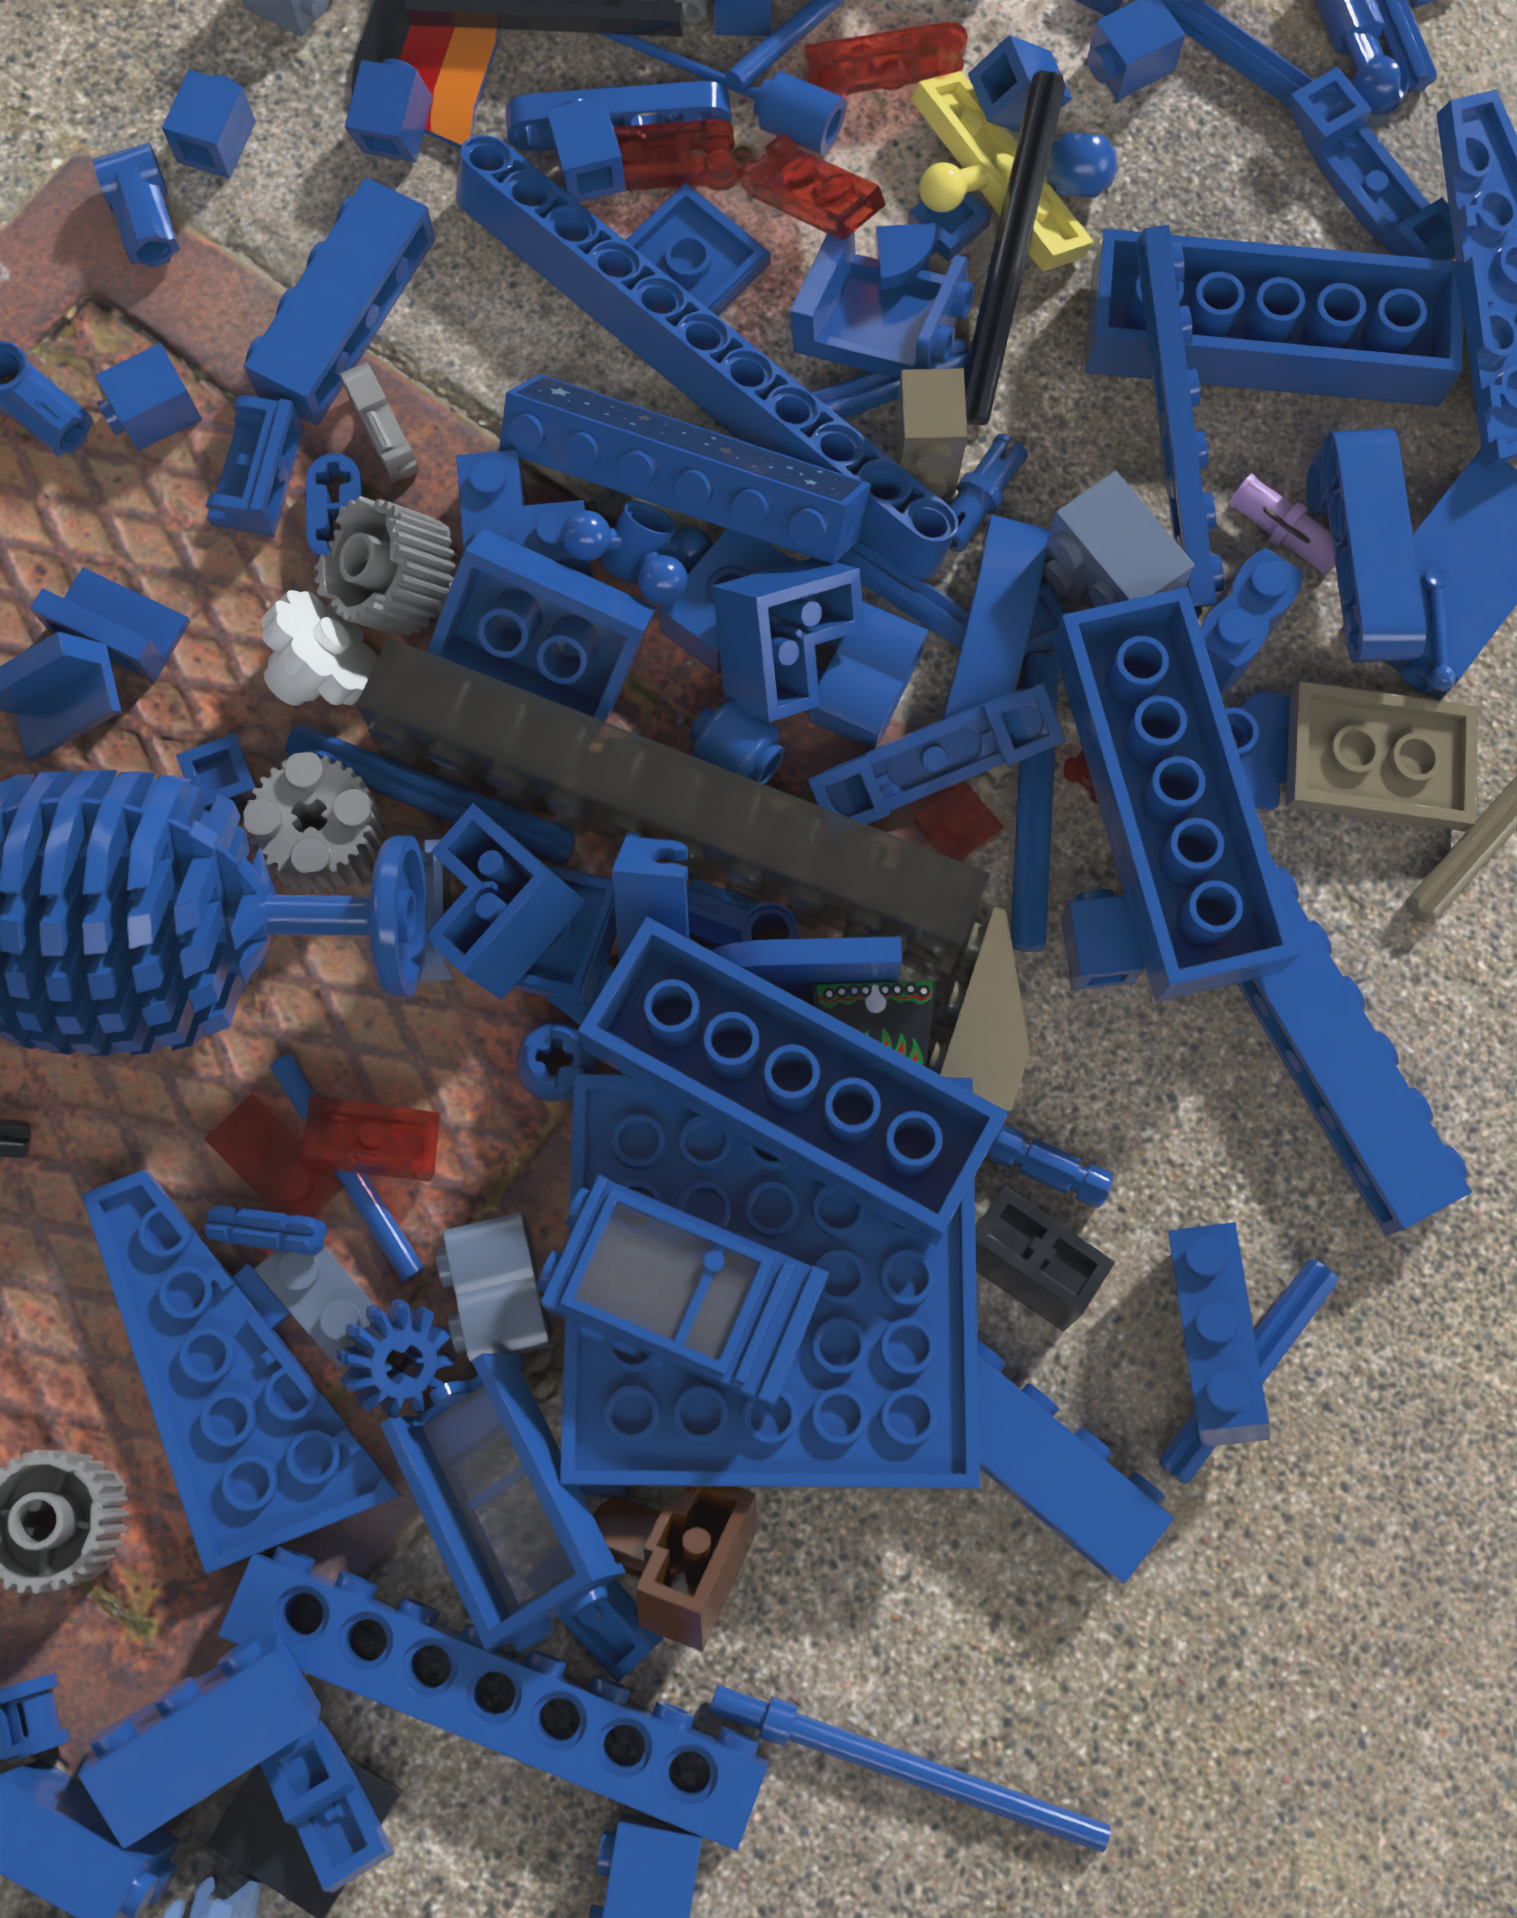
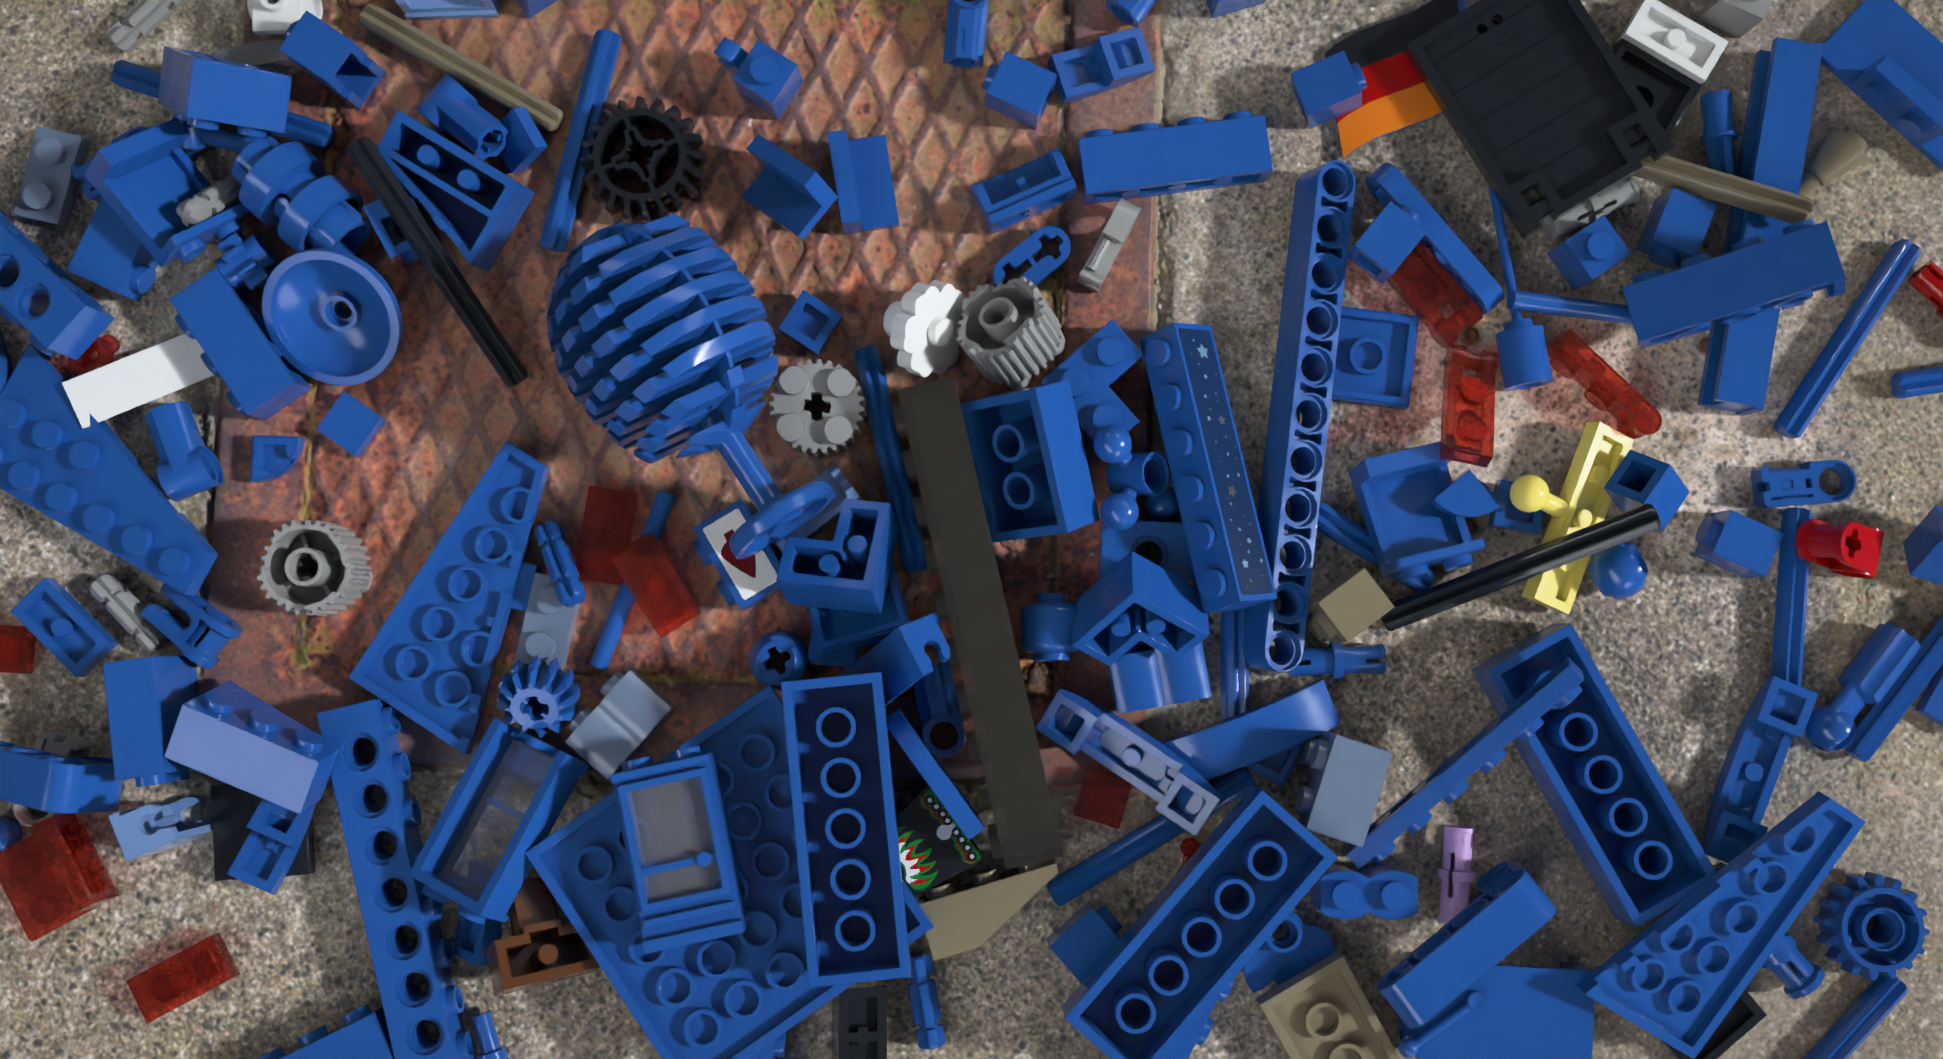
camera: 60 degrees right, 10 degrees up
(191, 306) = (1101, 66): none -> blue slope
(430, 1028) = (743, 580): none -> brick

